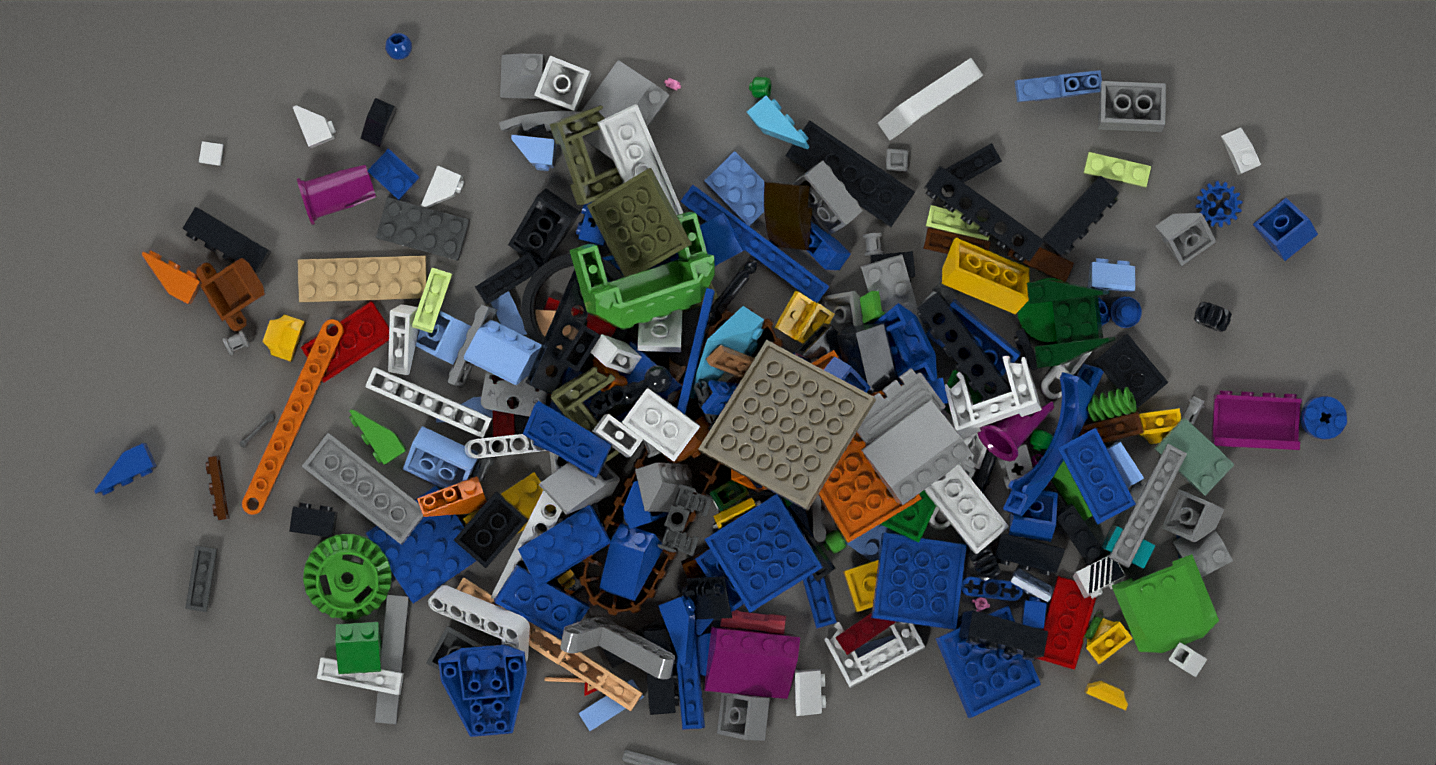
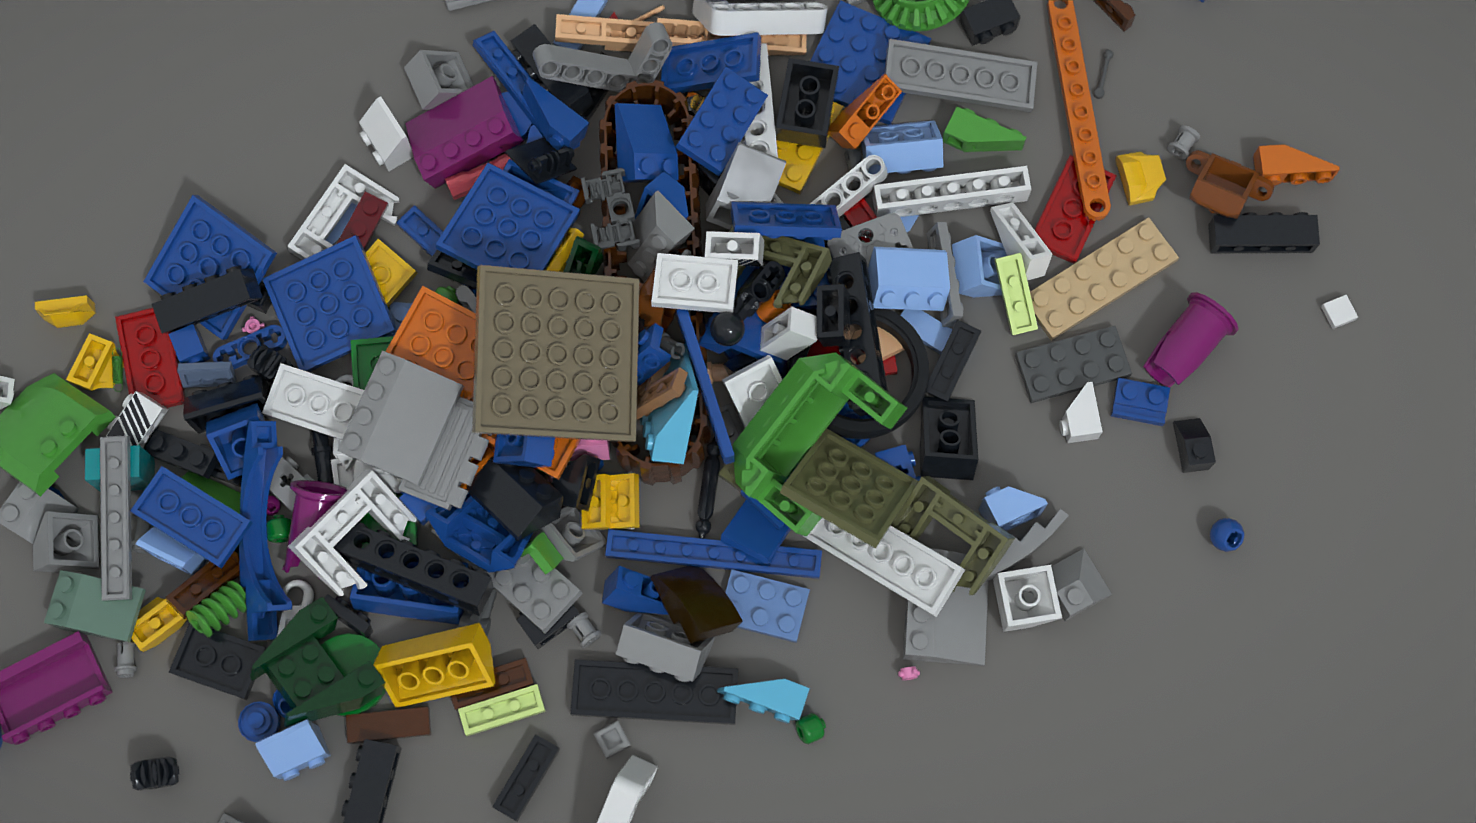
camera: 150 degrees right, 15 degrees down
(314, 127) = (1257, 399): white slope -> none
(1031, 241) = (408, 719): black brick -> none

